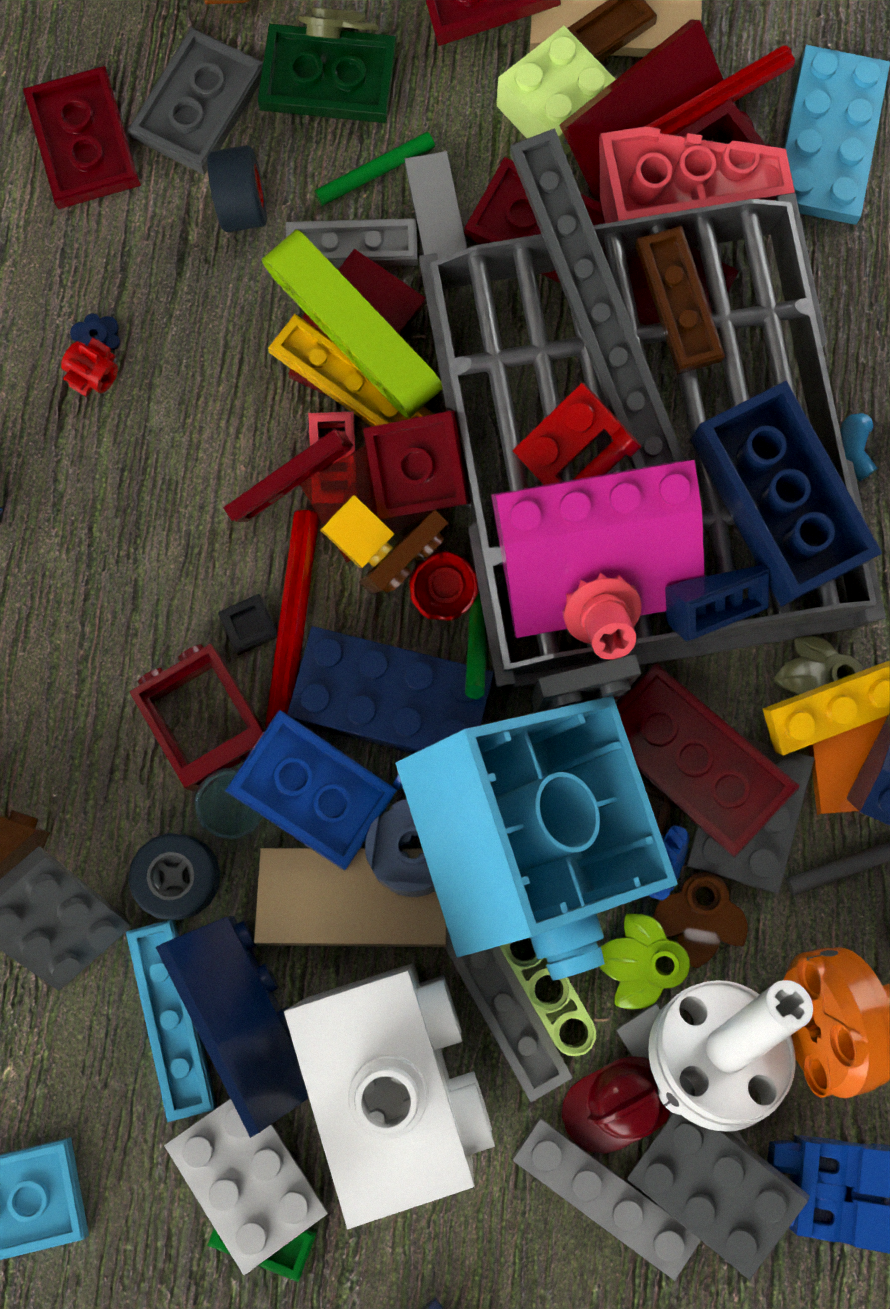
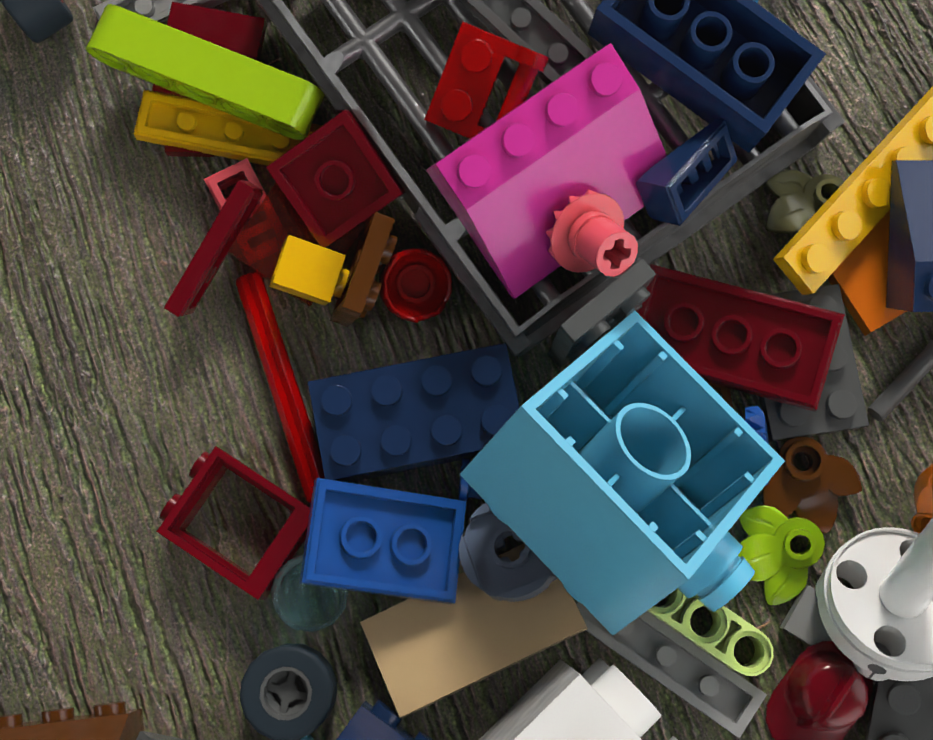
camera: 30 degrees left, 0 degrees up
(248, 624) = (242, 410): black tile -> none
(476, 652) = (479, 330): green bar -> none

